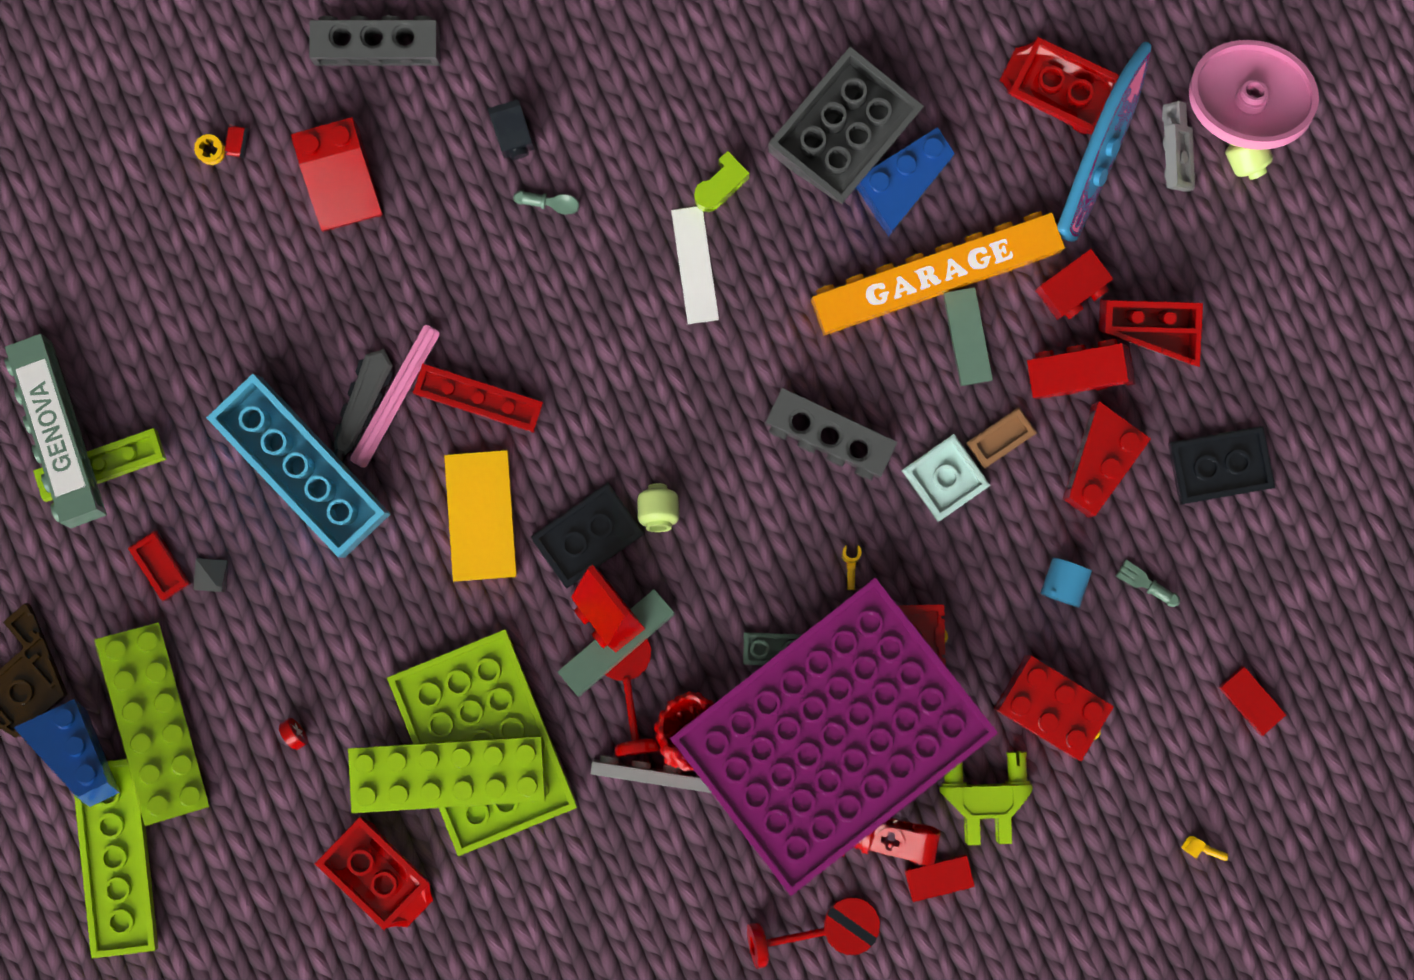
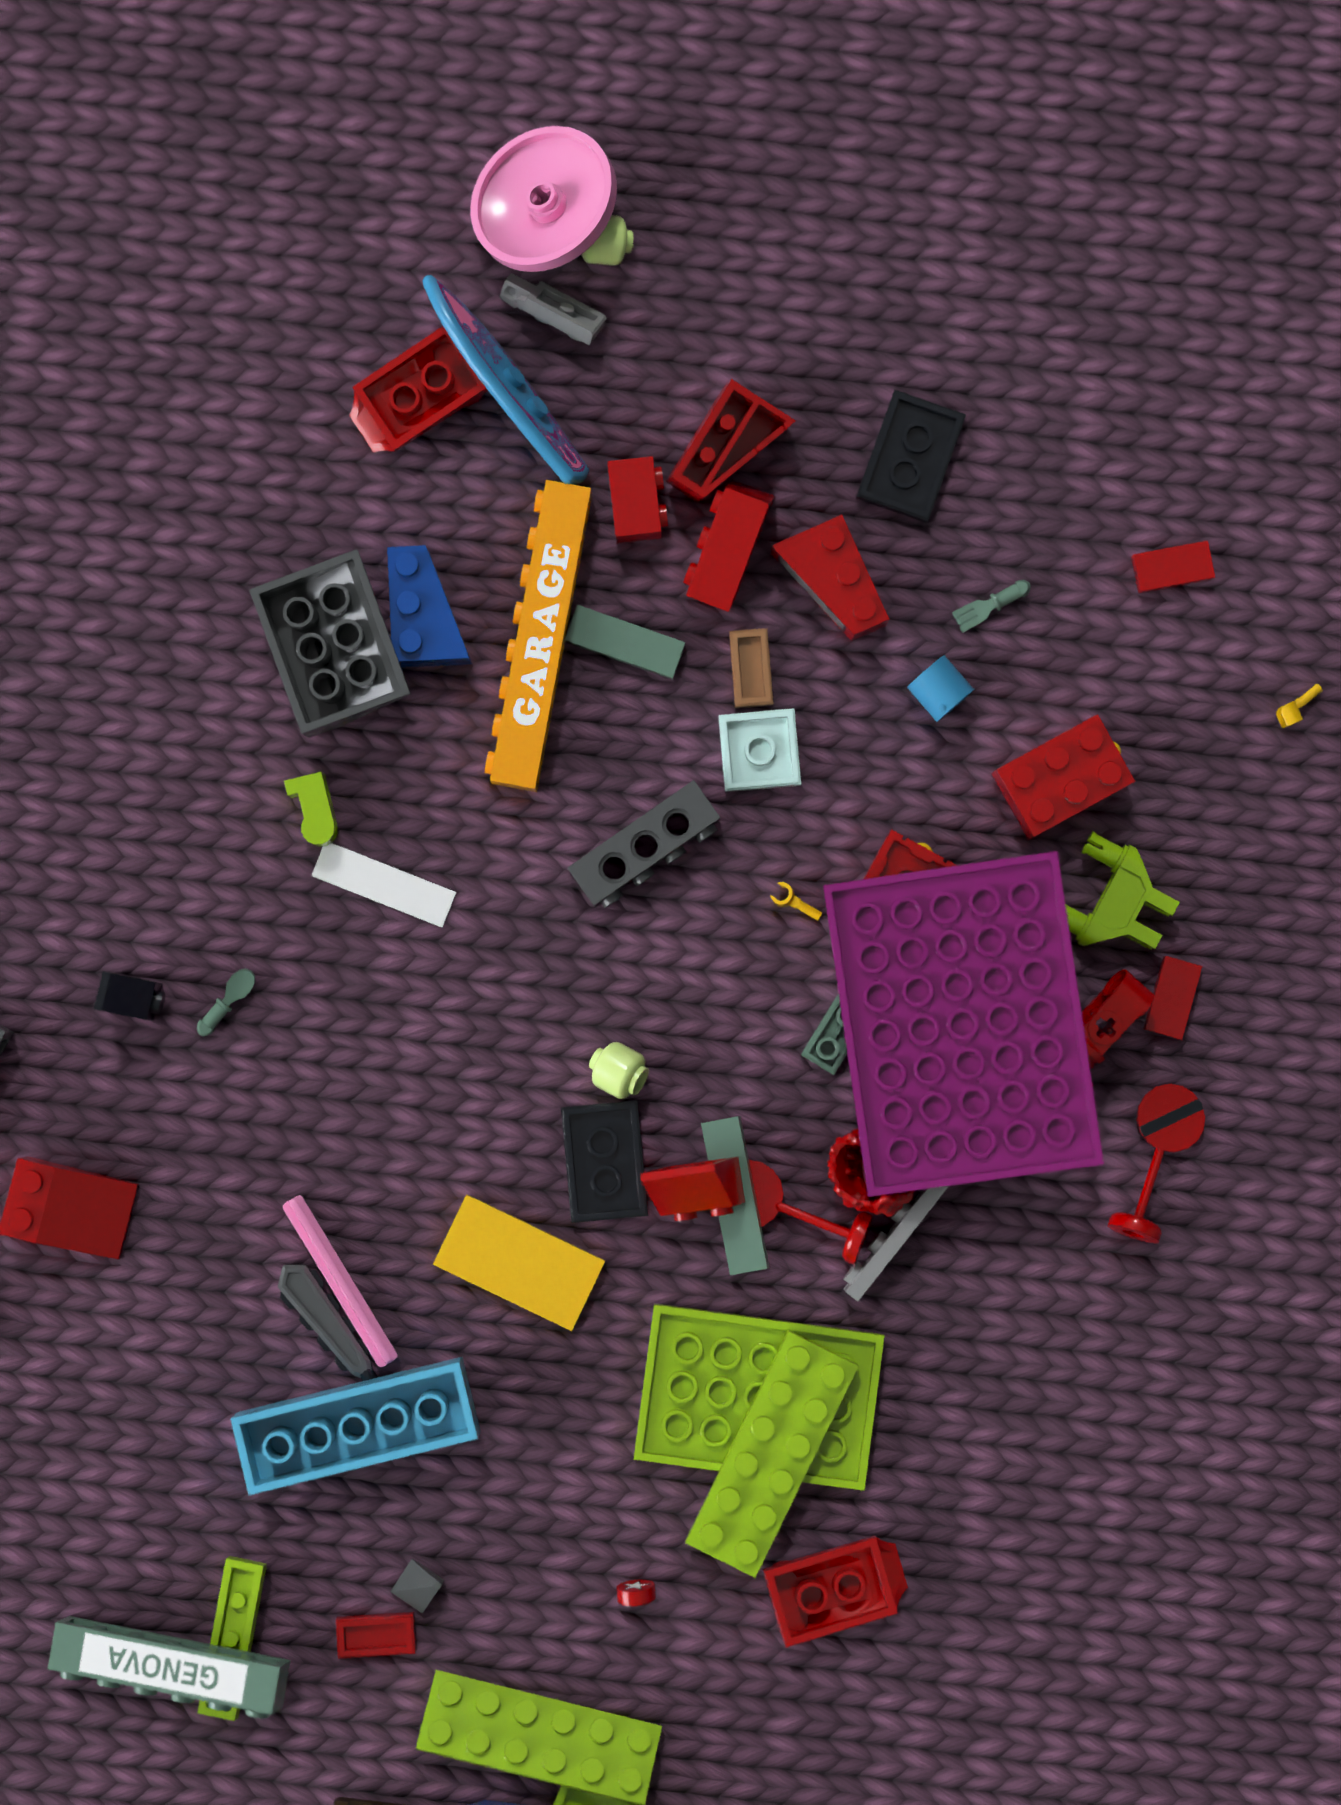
camera: 55 degrees left, 0 degrees up
(478, 398) = (393, 1194): red plate -> none

